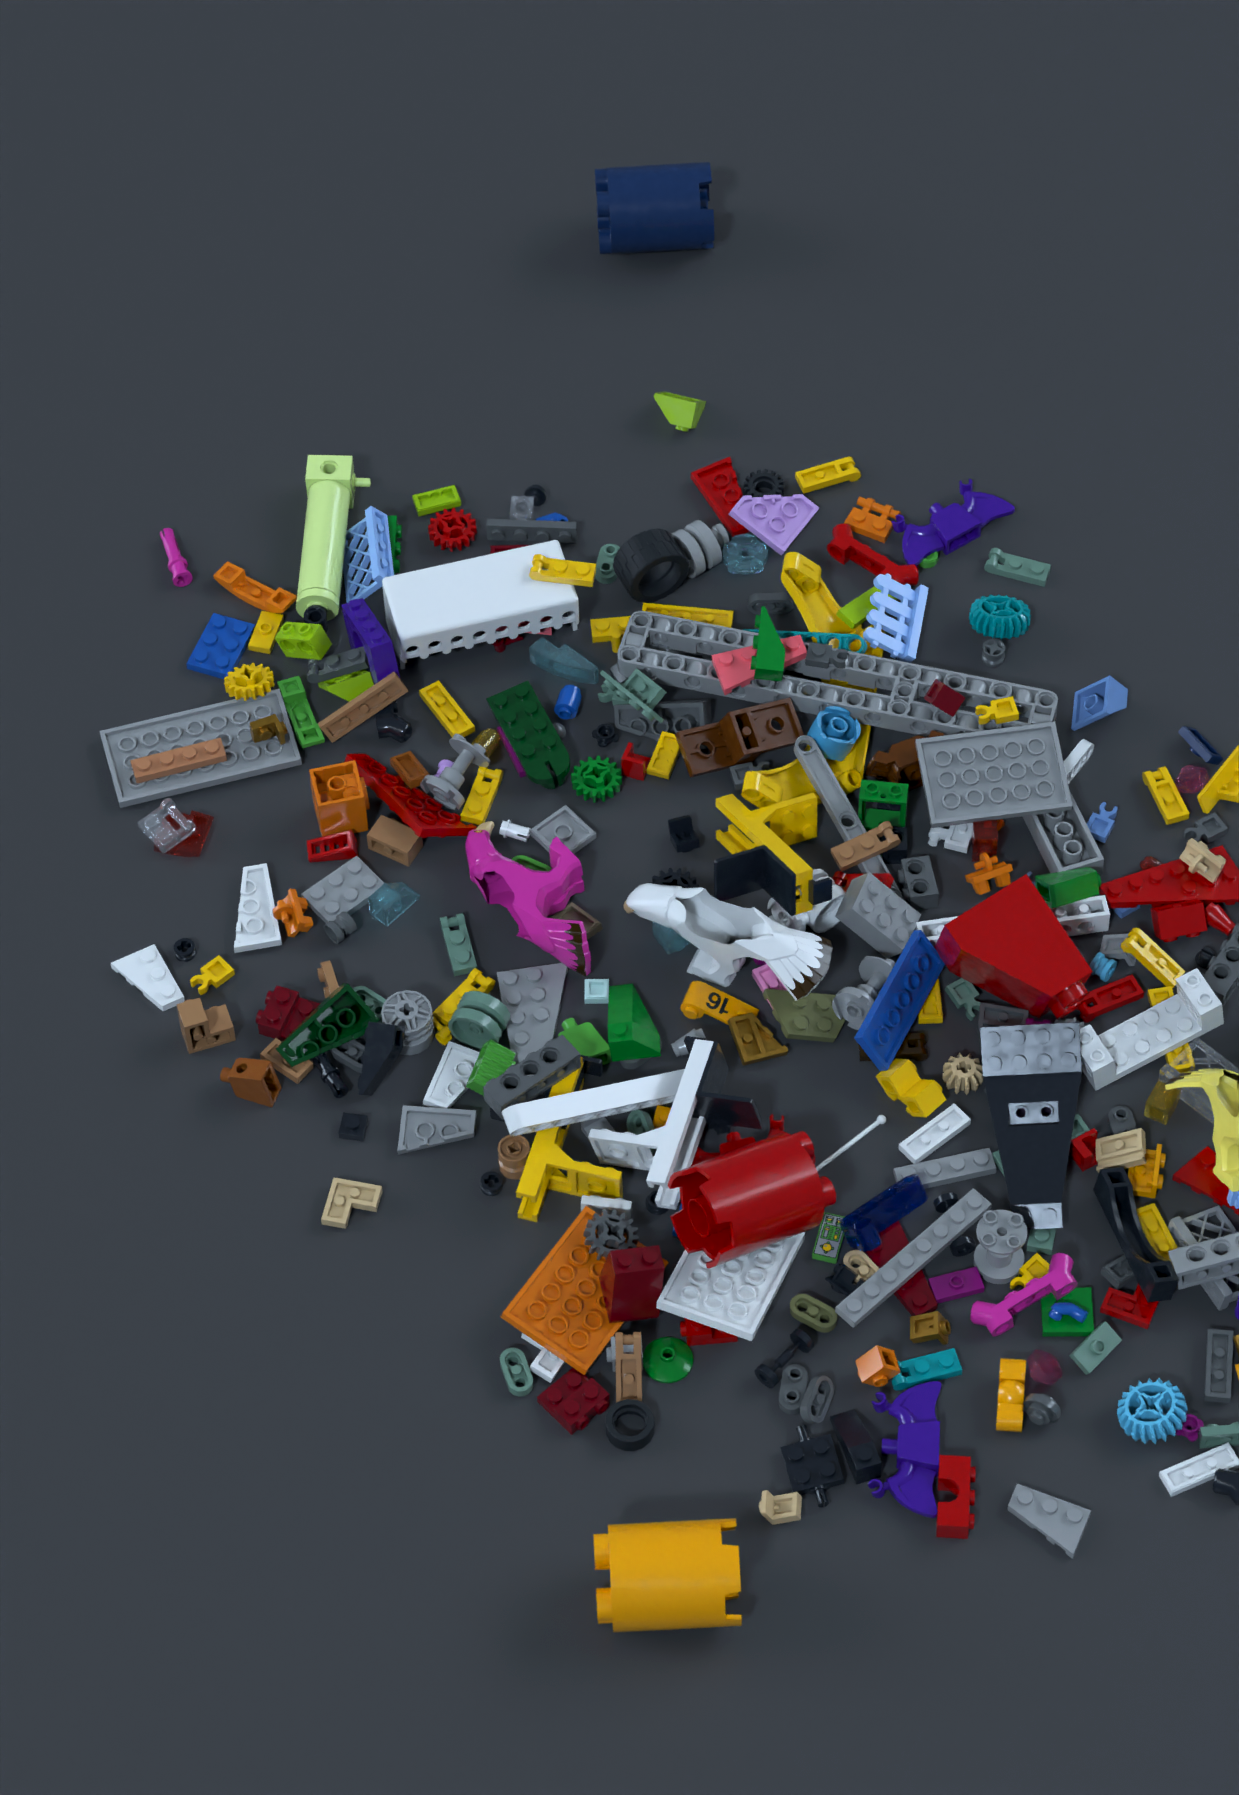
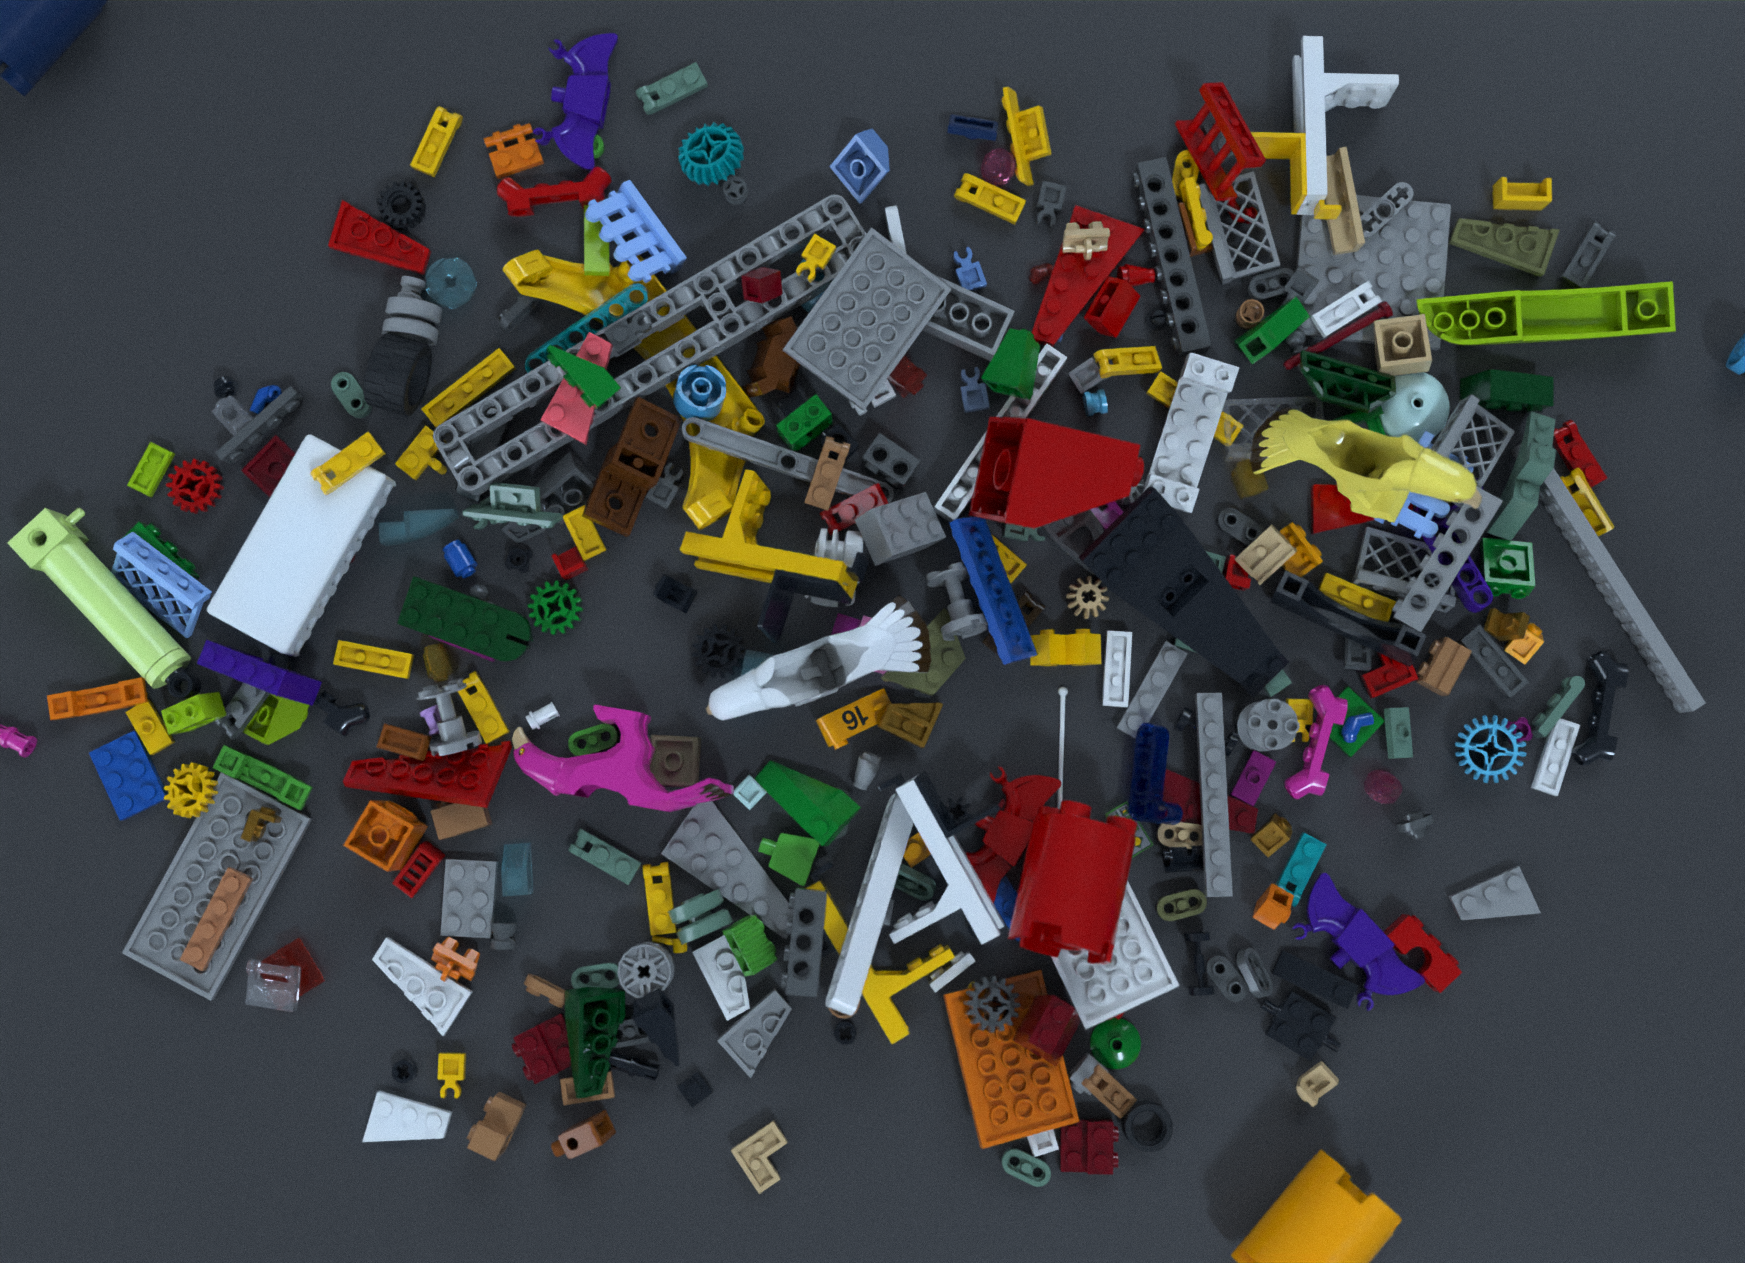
camera: 50 degrees left, 30 degrees up
(363, 707) = (312, 730): medium nougat plate -> none
(567, 827) = (581, 681): light grey plate -> none
(680, 410) = (252, 190): lime slope -> none
(774, 517) = (441, 226): lavender plate -> none
(998, 871) = (934, 402): orange hips -> none
(1011, 1395) = (1382, 833): light orange piece -> none
(1110, 997) = (1127, 416): red plate -> none
(1176, 1334) = (1443, 666): none -> medium nougat brick

